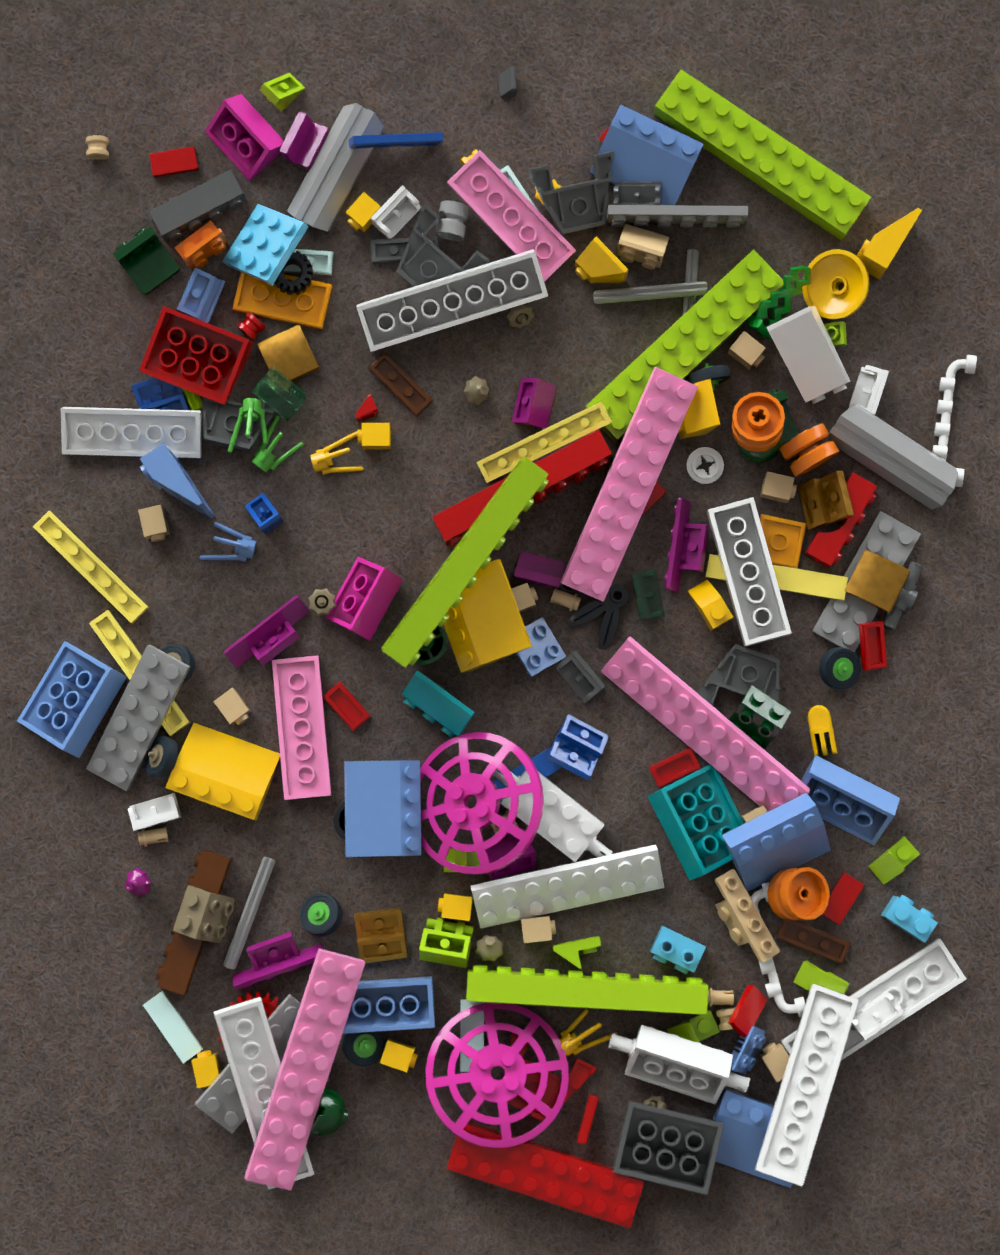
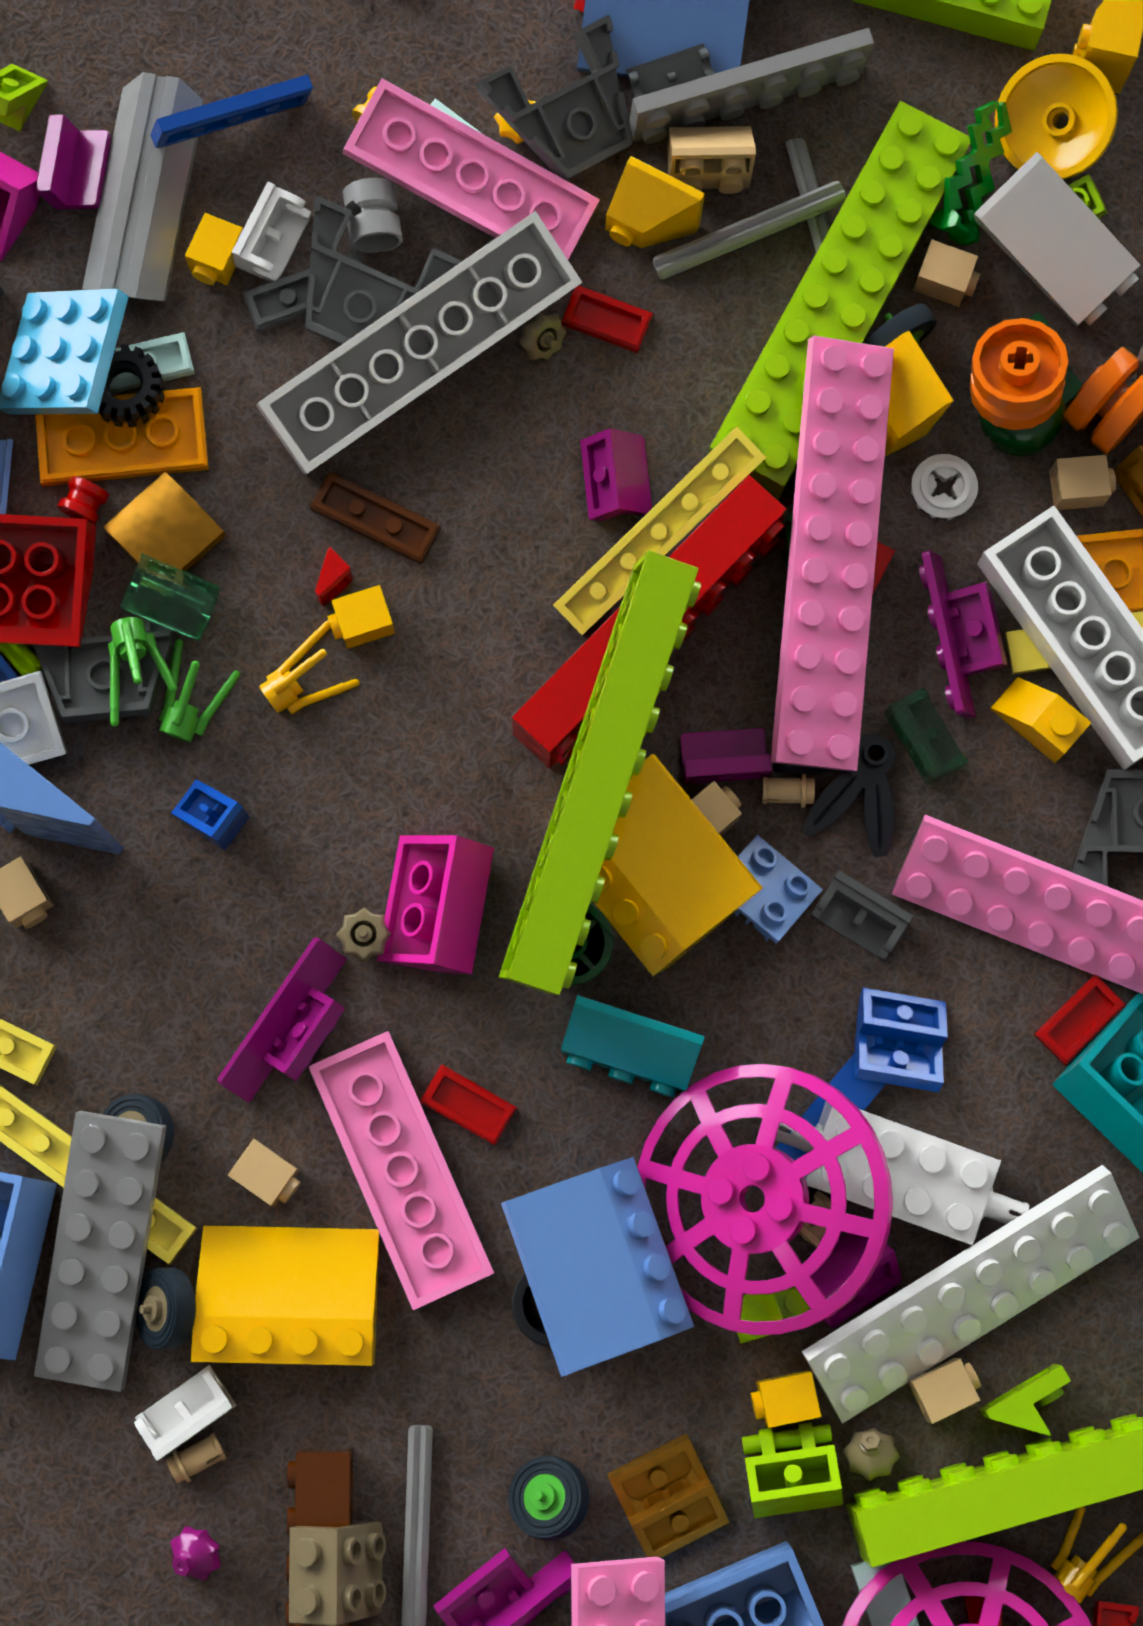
camera: 25 degrees left, 5 degrees down
(244, 547) = (192, 883): medium blue plant -> none
(476, 390) = (510, 485): dark tan piece -> none
(558, 316) = (607, 319): none -> red tile

